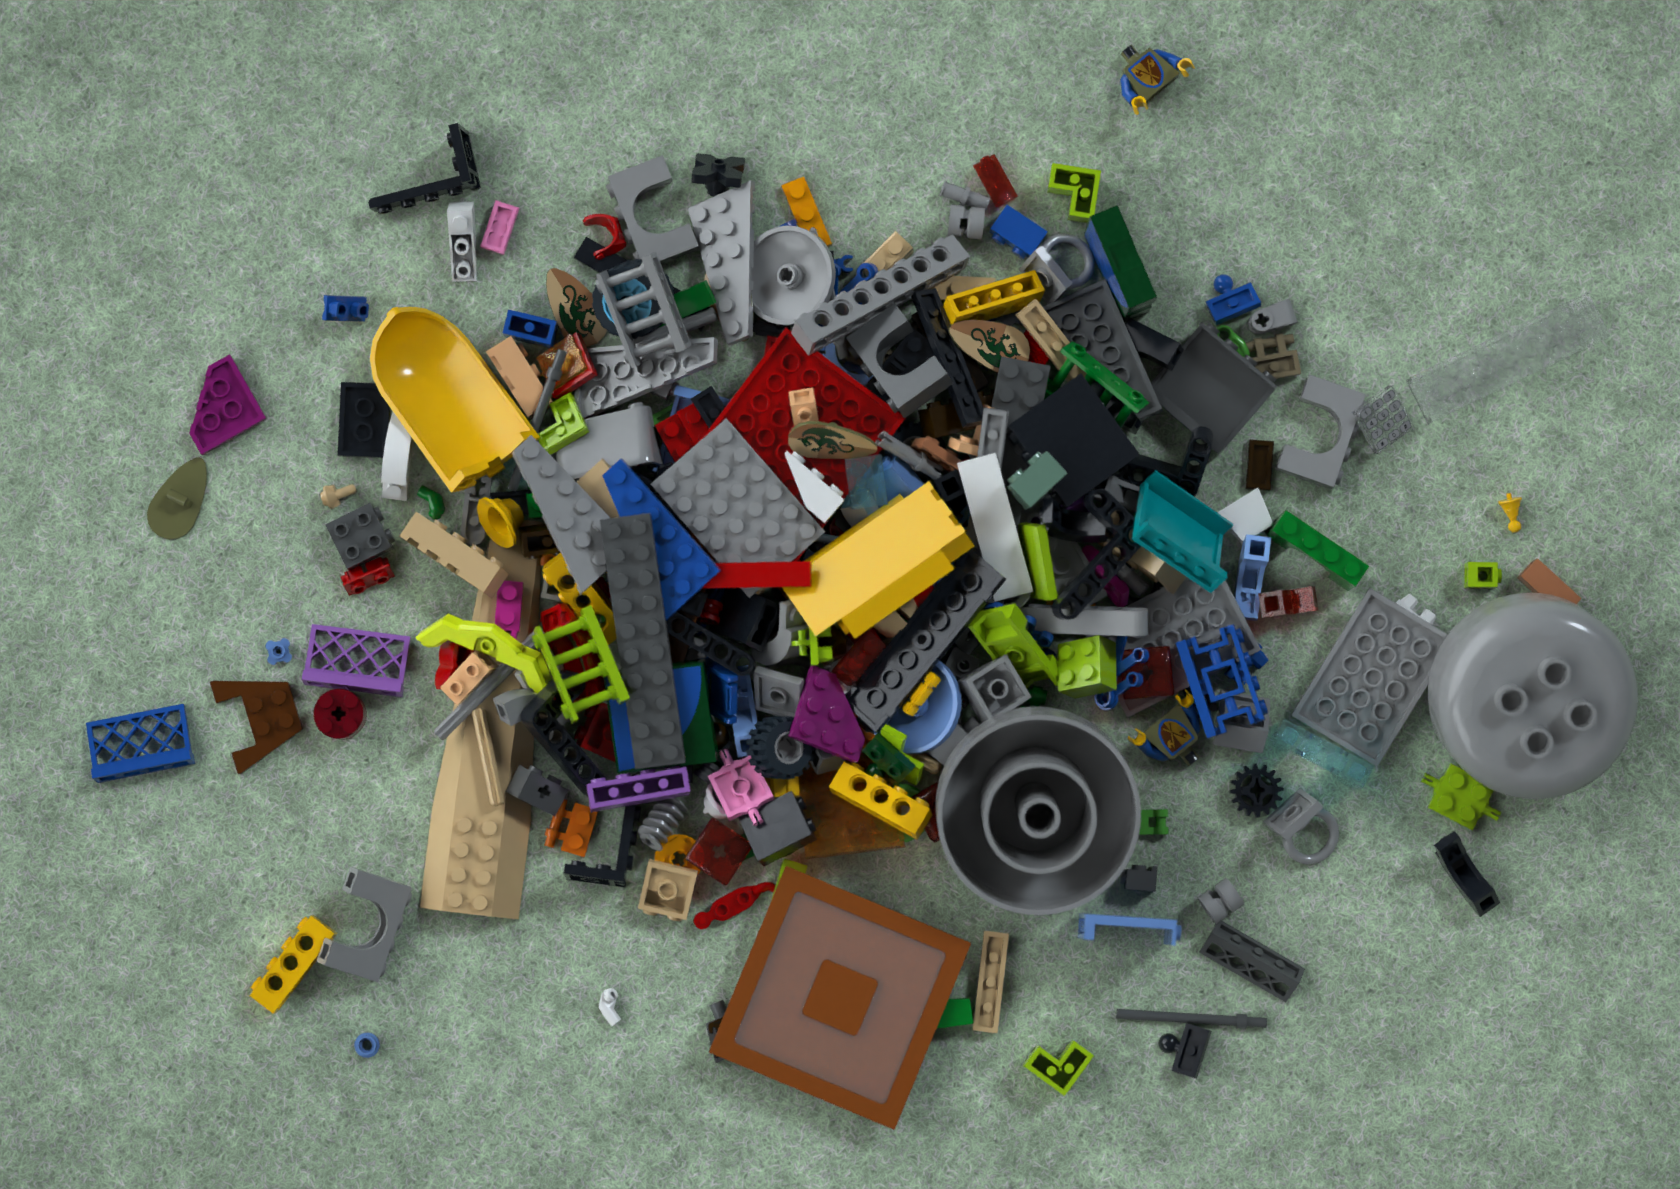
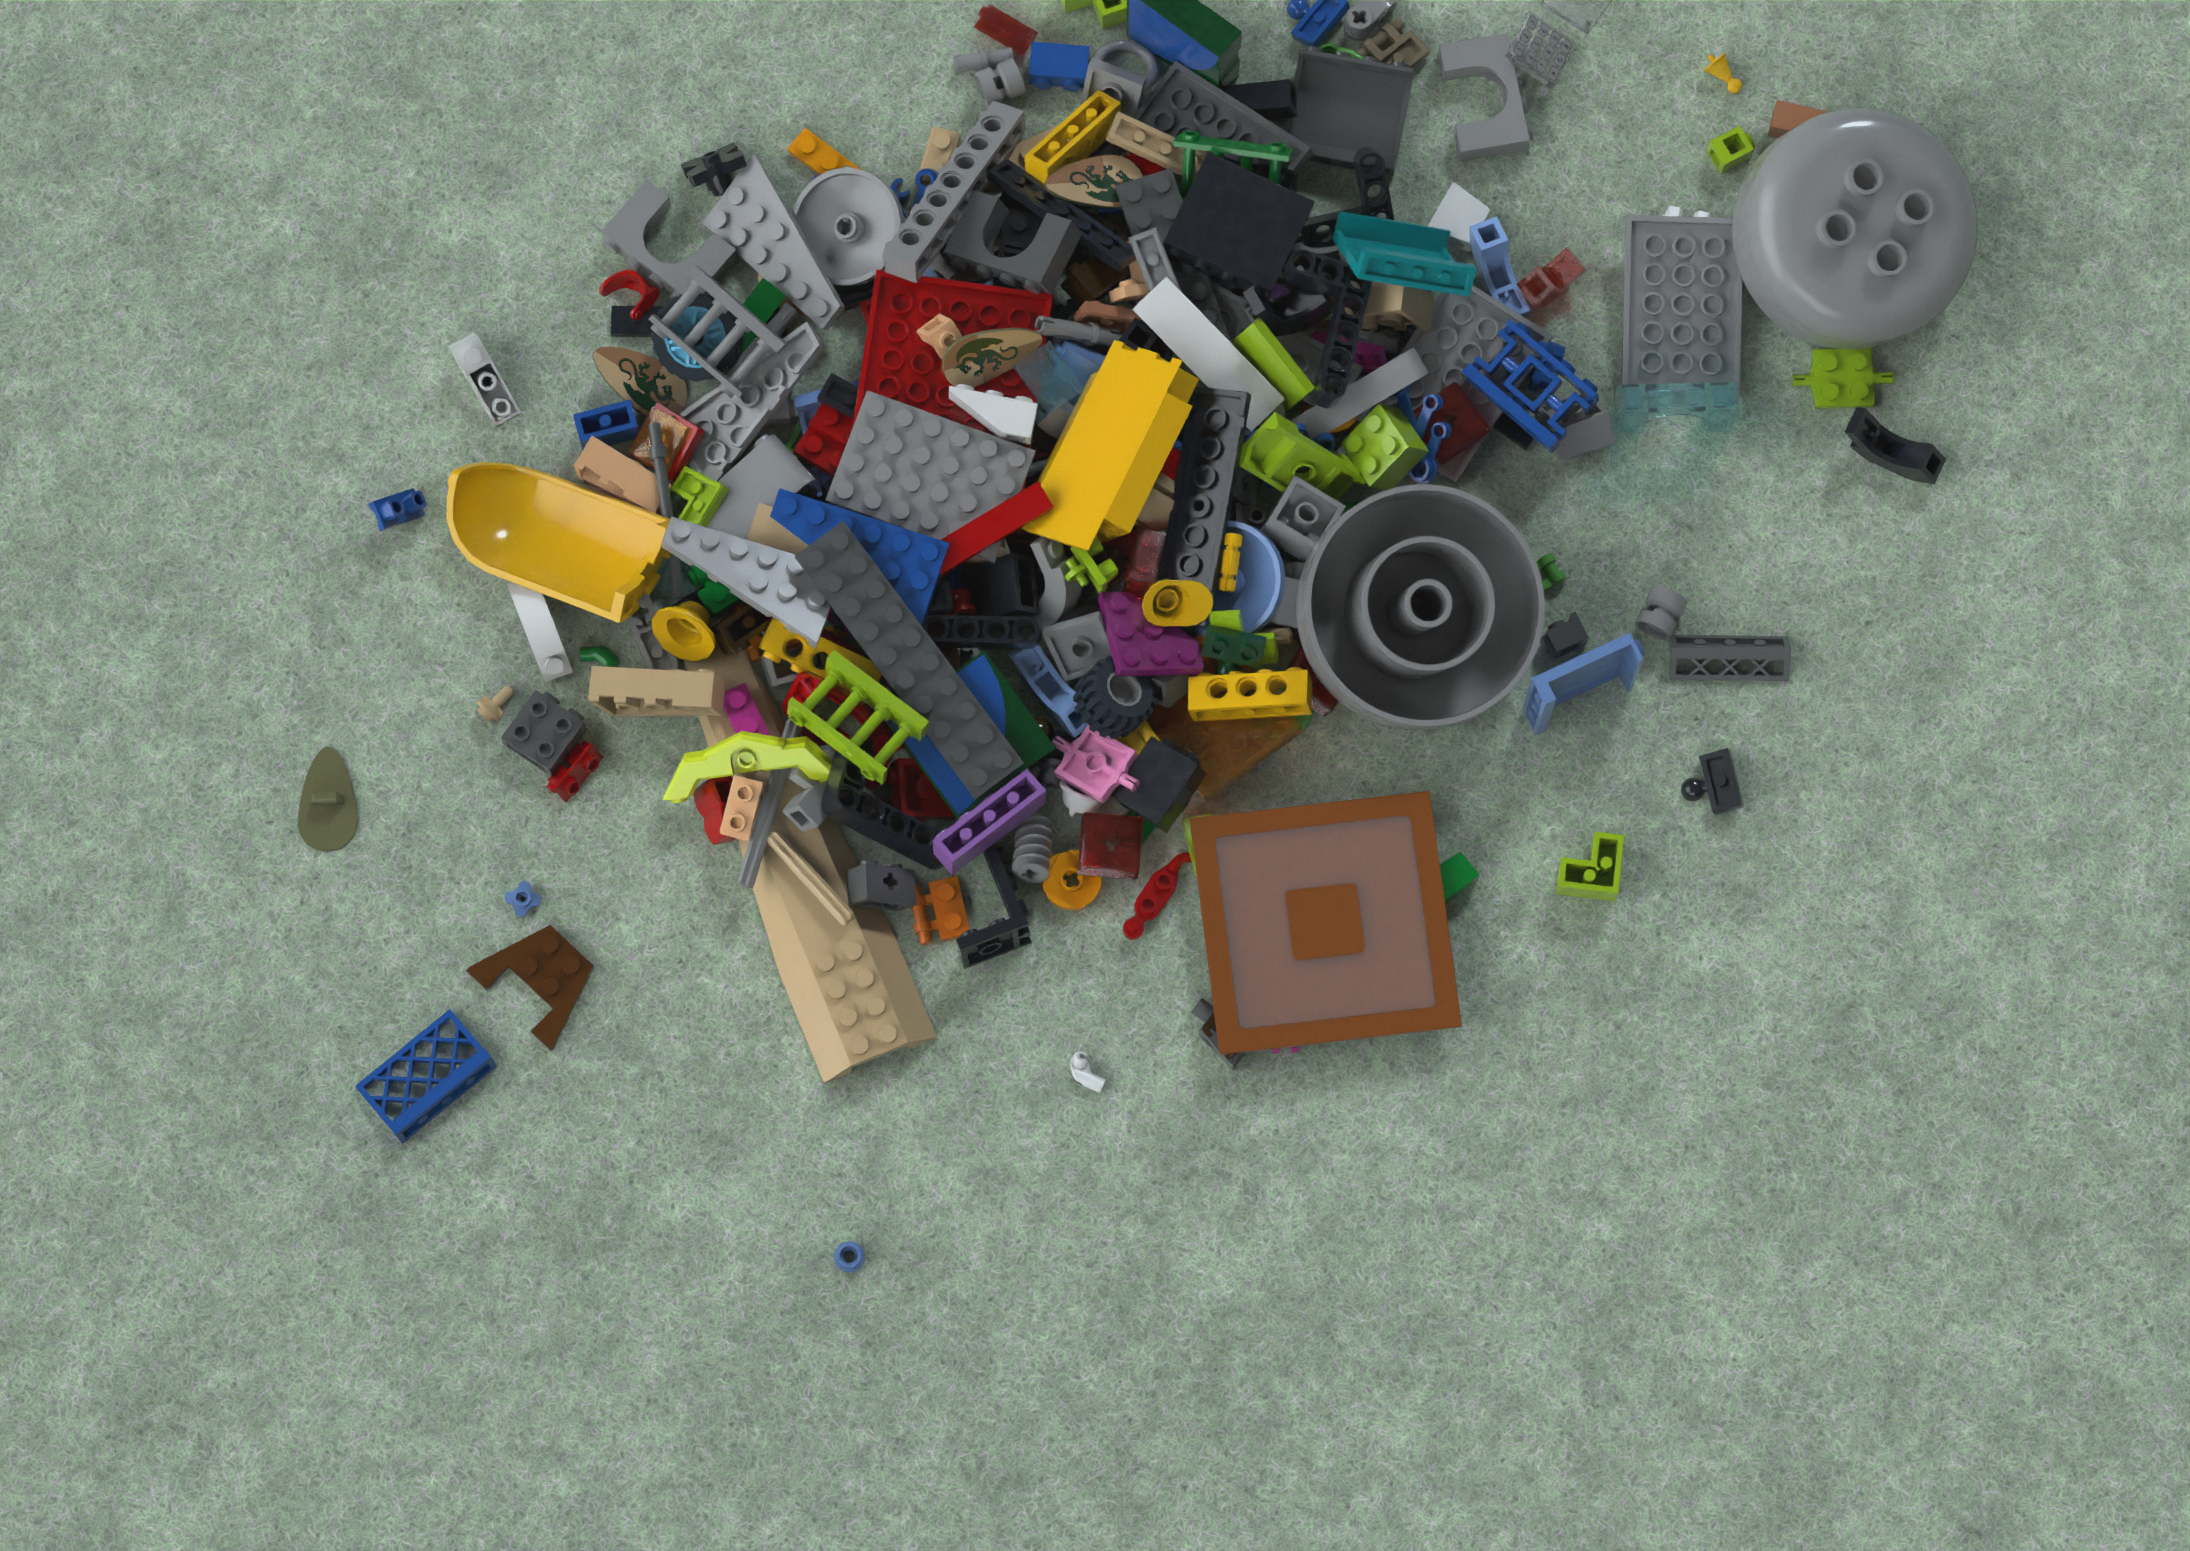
camera: 30 degrees left, 10 degrees down
(224, 407) = (323, 679): magenta plate -> none
(262, 988) = (722, 1261): yellow brick -> none
(350, 723) = (614, 937): dark red brick -> none
(351, 681) = (626, 883): medium lavender fence -> none
(362, 421) = (481, 614): black plate -> none
(369, 958) = (789, 1089): light grey arch -> none
(462, 162) = (424, 342): black bracket -> none
(499, 227) = (515, 344): bright pink plate -> none
(667, 890) = (1079, 915): tan plate -> none
(723, 691) = (1022, 675): blue container -> none
(862, 705) = (1177, 603): none -> yellow piece
(990, 982) = (1471, 826): tan plate -> none
(1036, 480) = (1221, 287): sand green brick -> none
(1172, 733) = (1511, 471): torso -> none
(1241, 1021) = (1752, 725): dark grey bar -> none
(1259, 465) = (1440, 163): dark brown tile -> none
(1266, 790) = (1620, 490): black gear -> none
(1294, 533) = (1583, 205): green arch -> none
(1295, 816) = (1686, 484): light grey tile -> none

